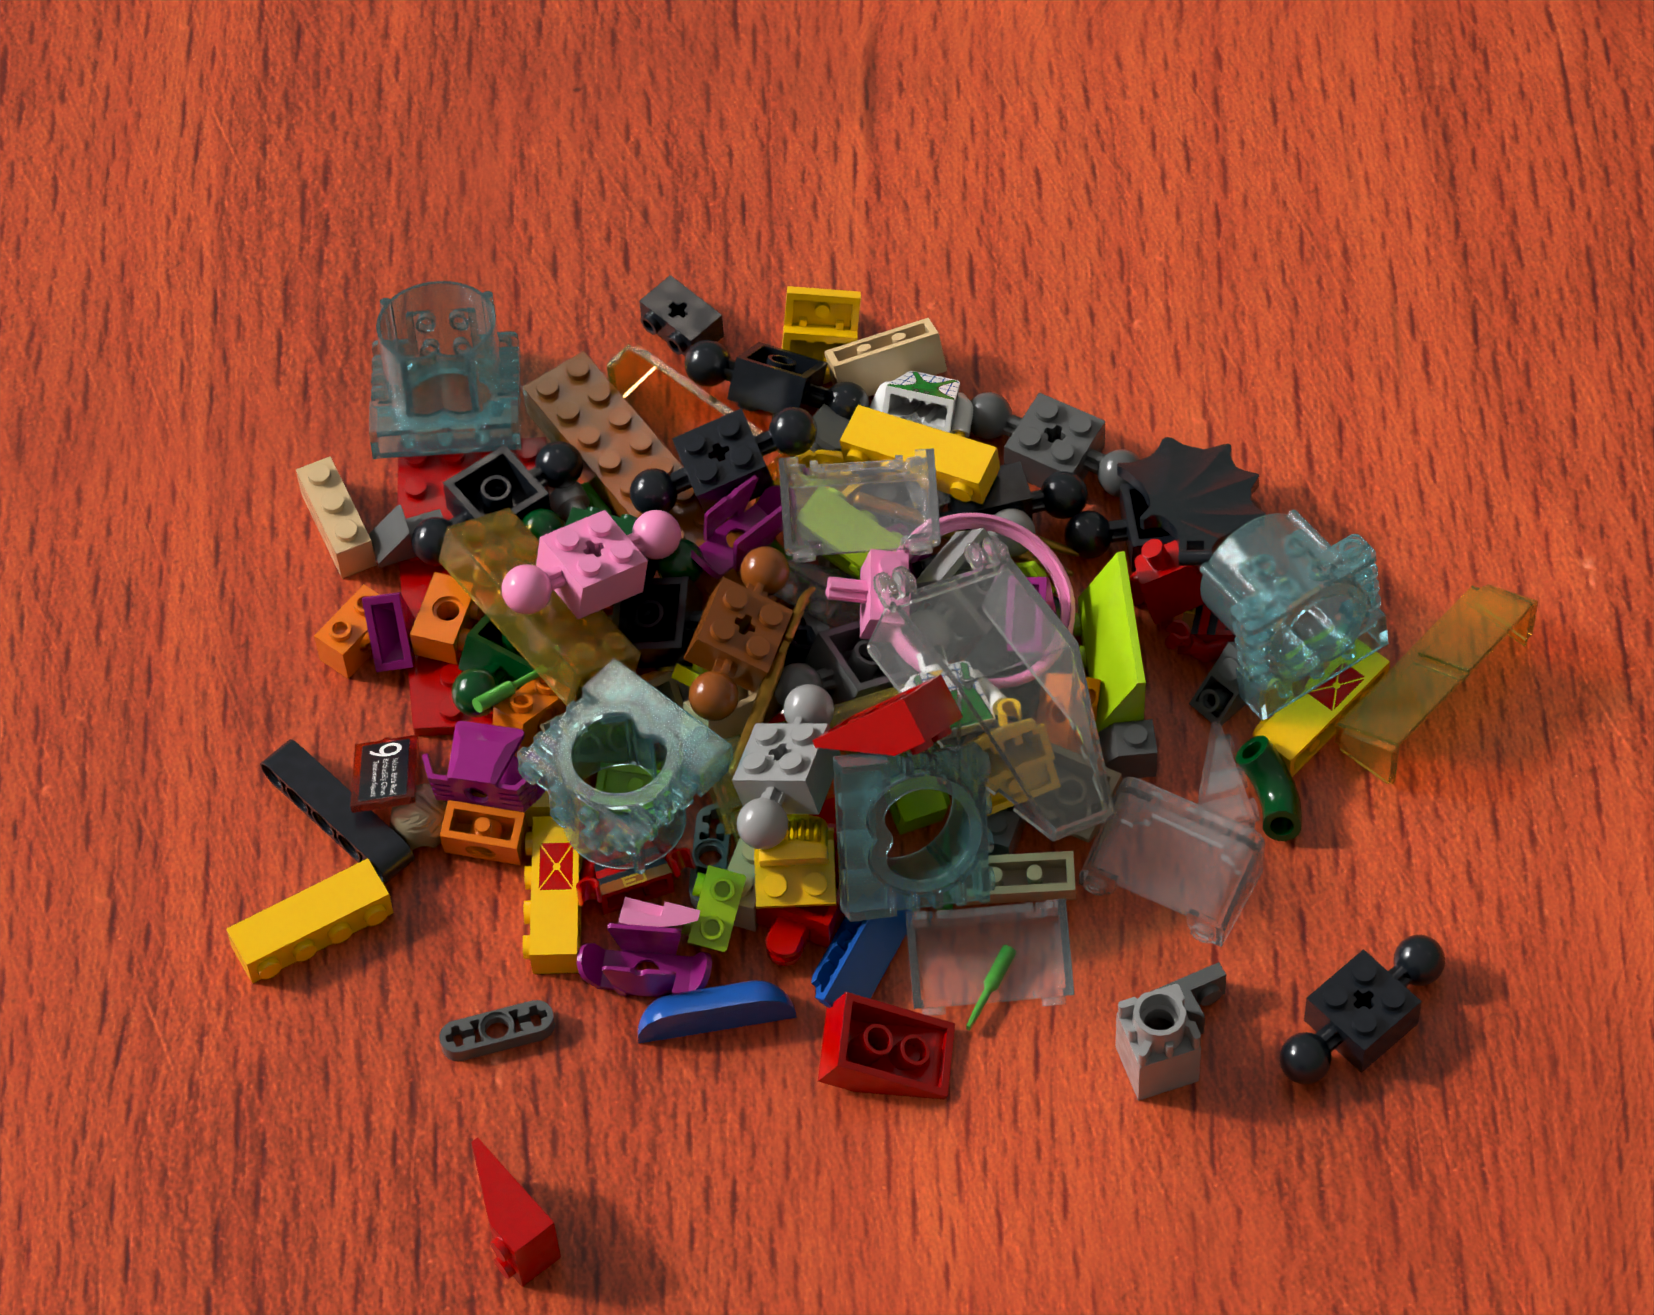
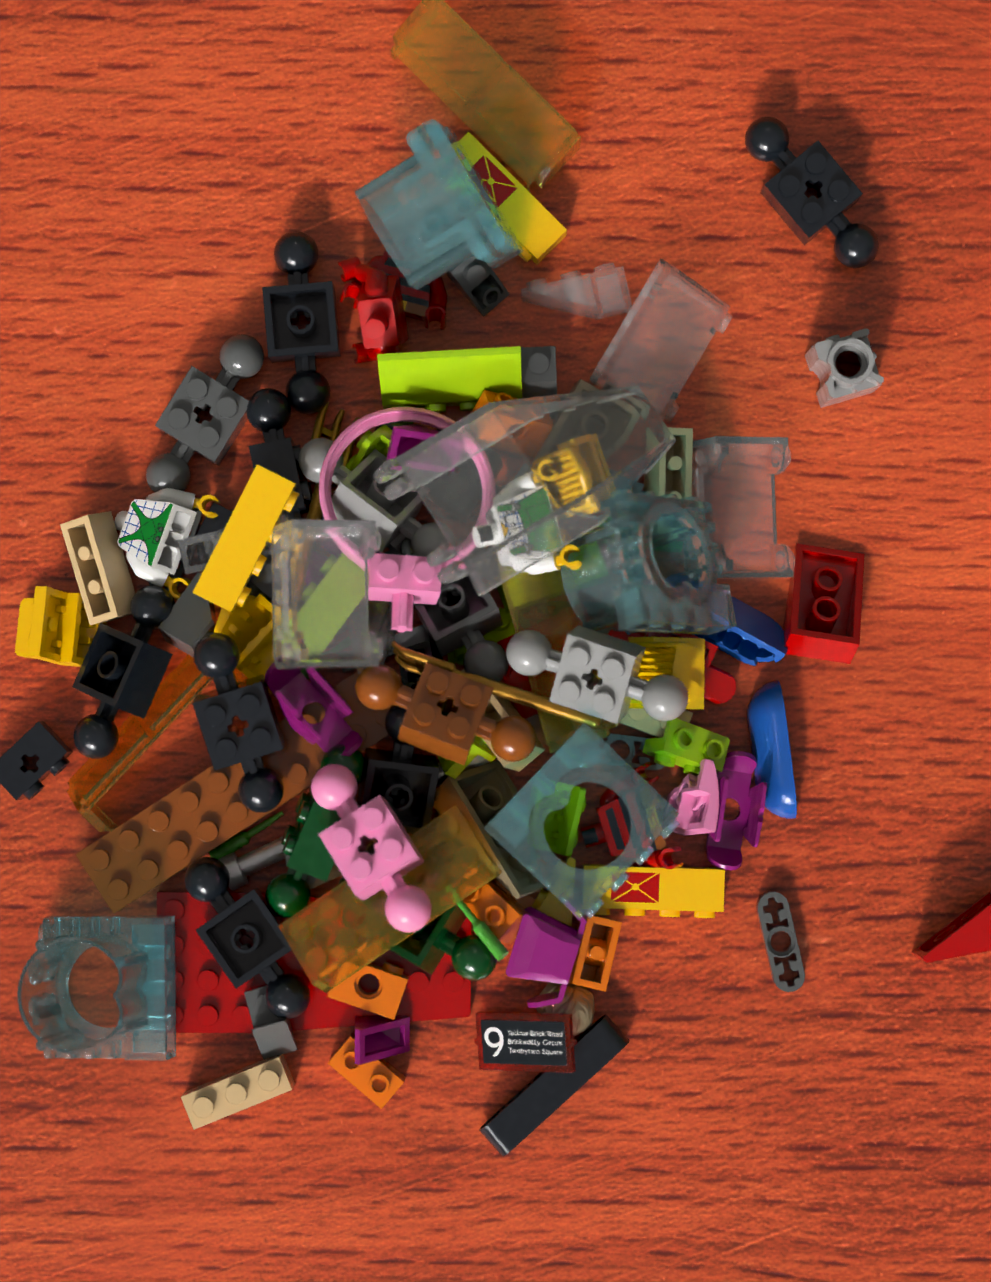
camera: 90 degrees left, 30 degrees up
(310, 921) = (667, 1107): yellow brick -> none
(897, 724) = (586, 575): red slope -> none
(993, 980) = (758, 508): bright green piece -> none
(1193, 496) = (301, 286): black animal -> none
(1201, 988) = (790, 349): dark grey slope -> none
(1273, 786) = (586, 247): dark green cylinder -> none

